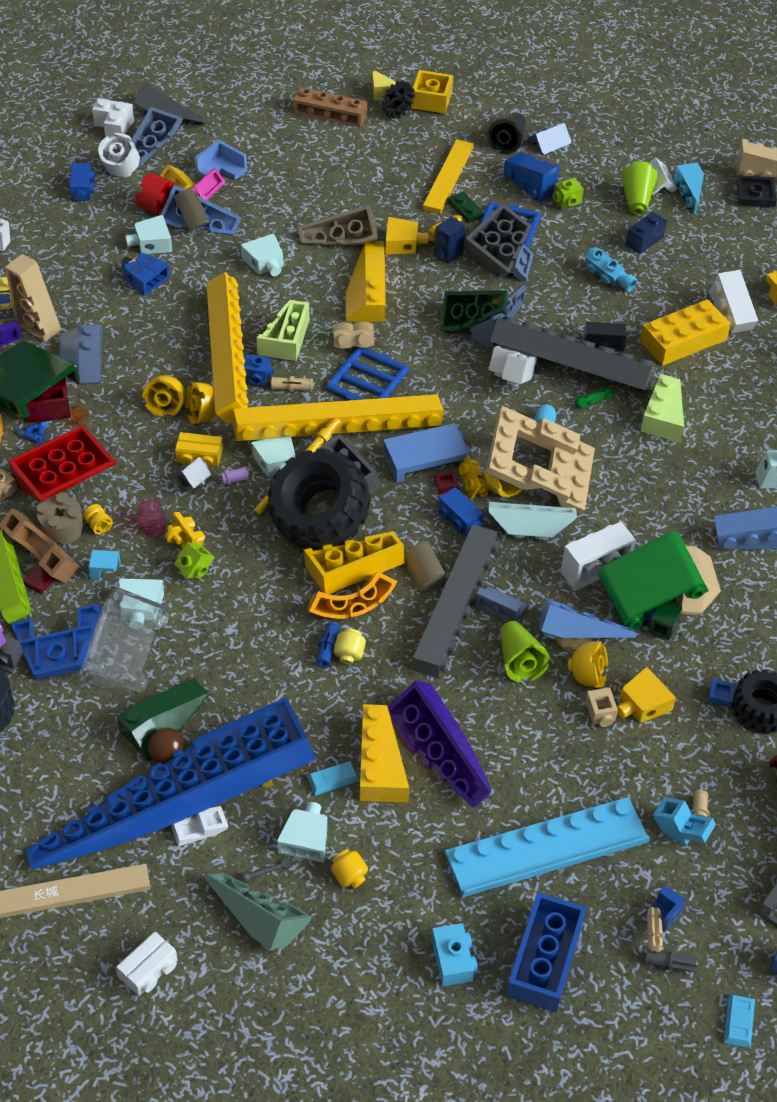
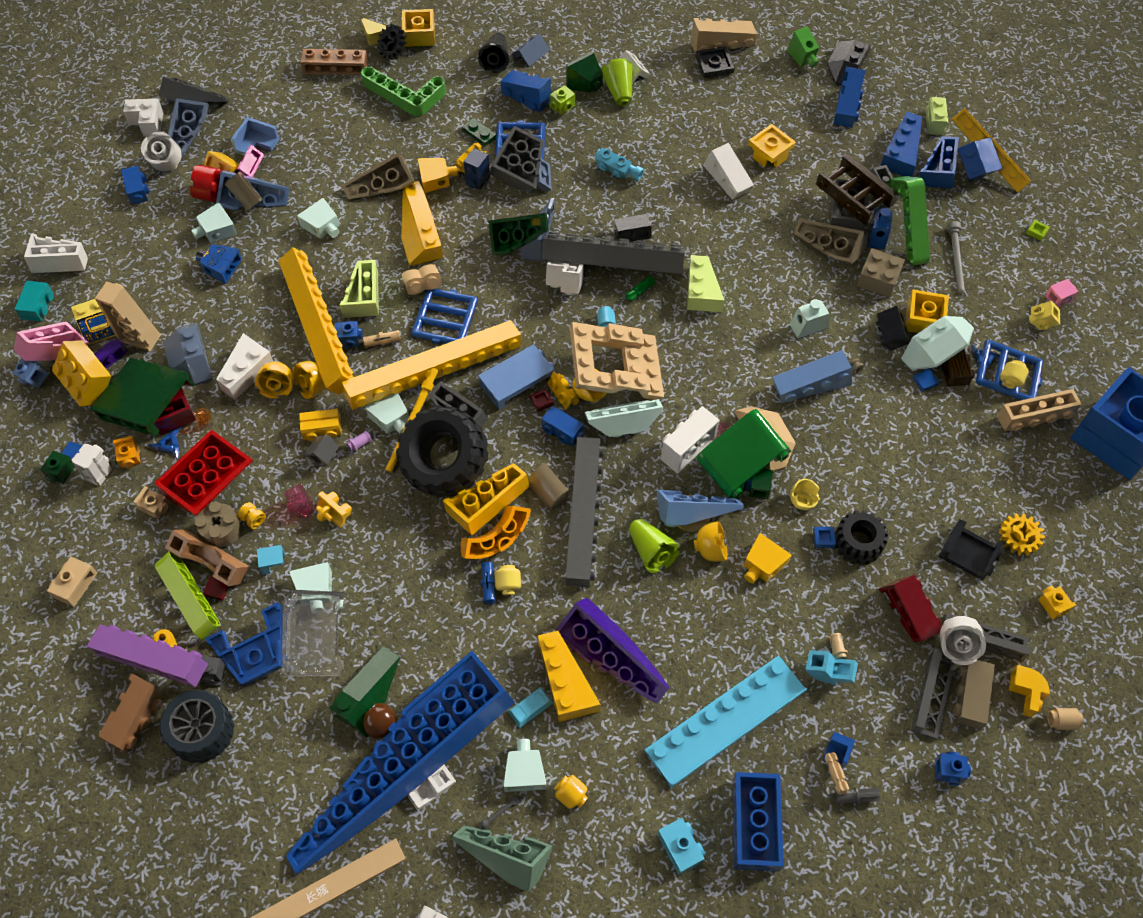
camera: 15 degrees left, 10 degrees up
(133, 375) = (242, 366): none -> white wedge
(193, 561) = (349, 534): lime brick -> none
(393, 156) = (413, 102): none -> bright green beam
(448, 177) = (455, 106): yellow tile -> none
(499, 604) = (621, 503): sand blue panel -> none
(600, 172) = (584, 74): none -> dark green slope
(601, 706) = (733, 572): tan brick -> none
(646, 232) = (637, 122): dark blue brick -> none
(685, 332) = (697, 209): yellow brick -> none
(689, 179) = (659, 65): medium azure slope -> none
(712, 638) = (803, 490): none -> light yellow hair
(739, 1021) = (924, 833): medium azure tile -> none

